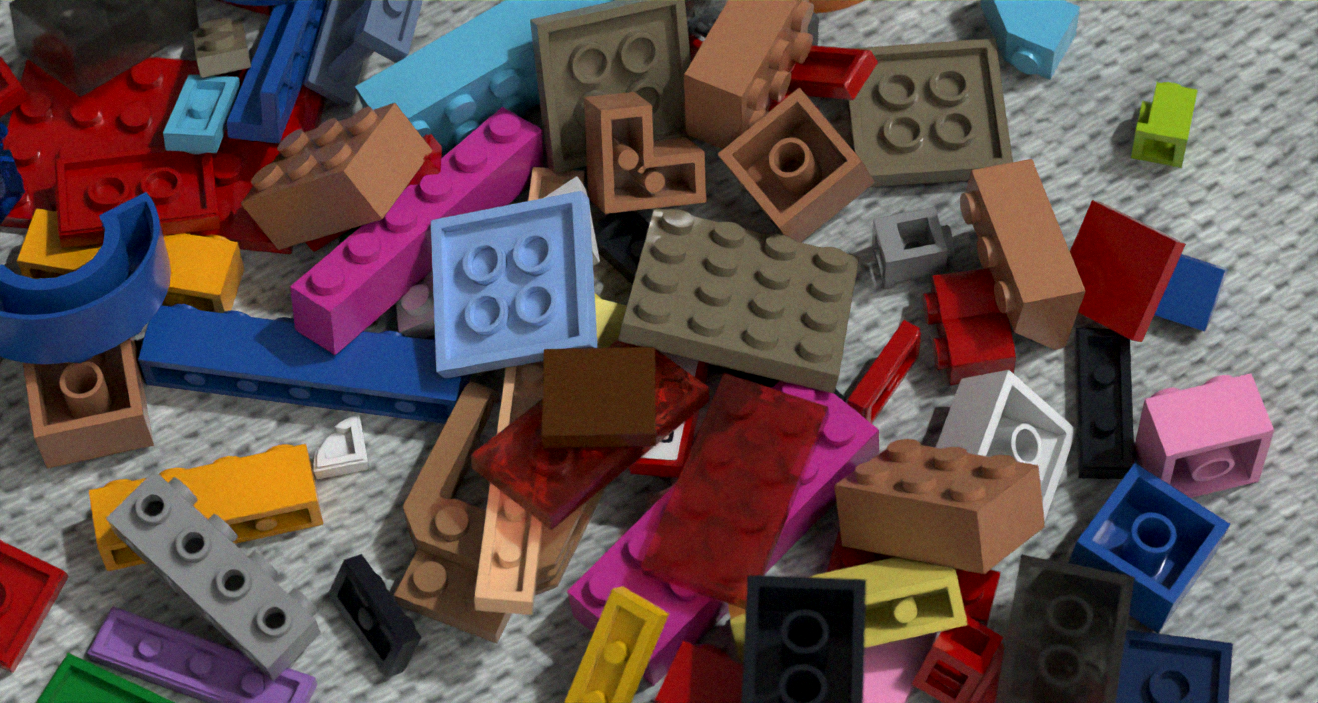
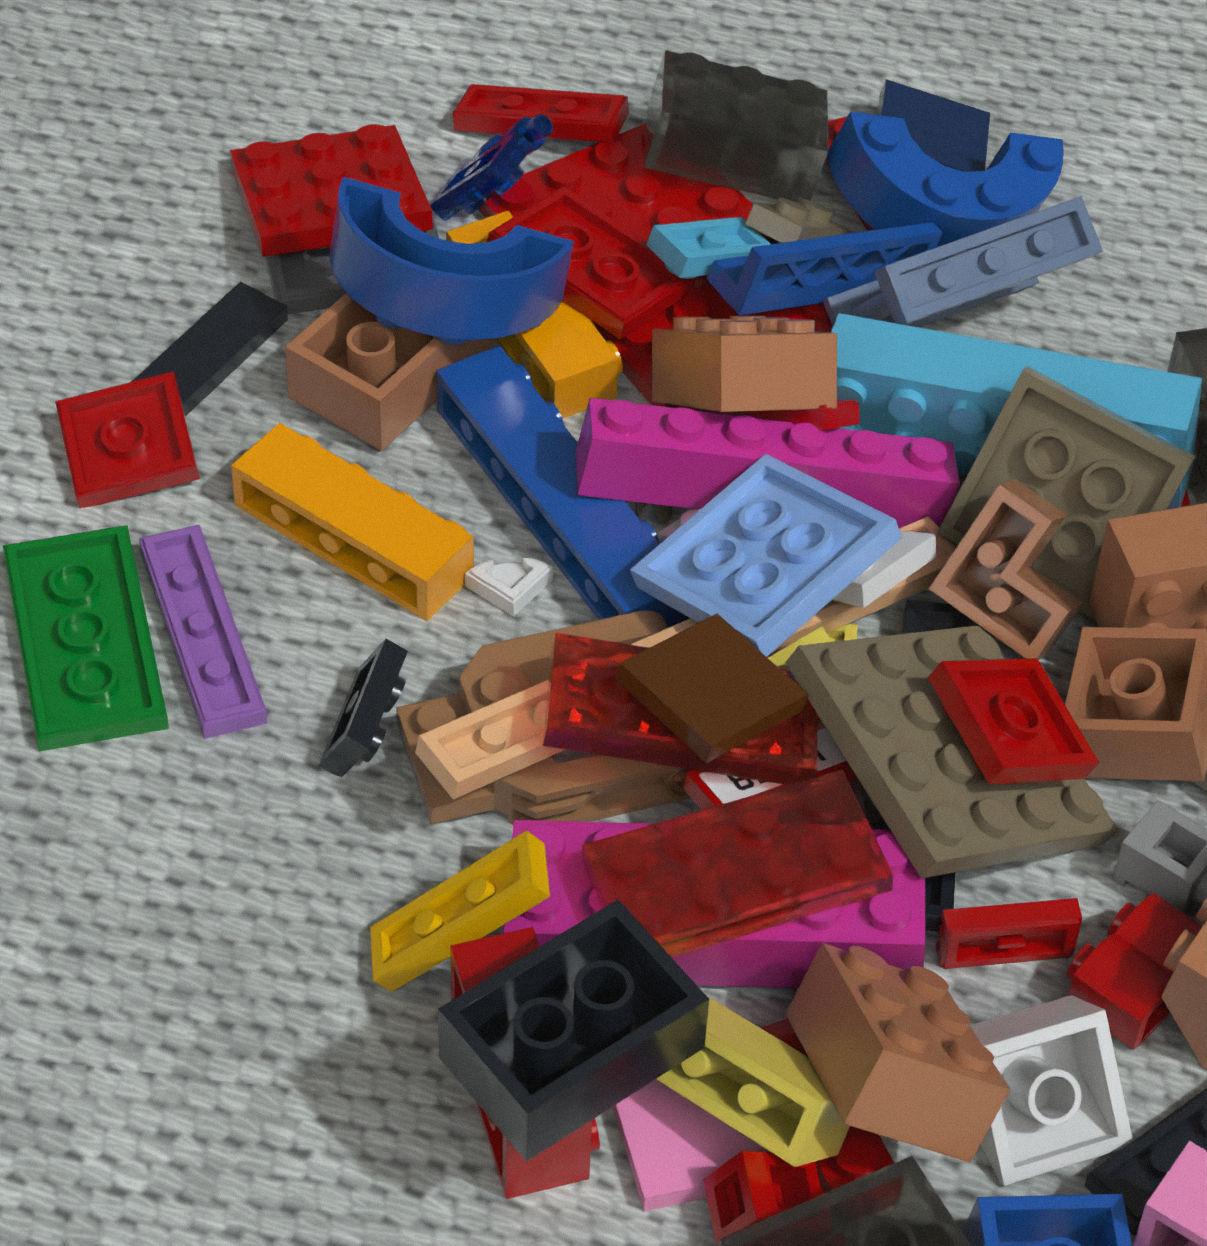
camera: 45 degrees right, 10 degrees down
(214, 574) = (277, 556): light grey brick -> none
(764, 250) = (1013, 720): none -> red plate

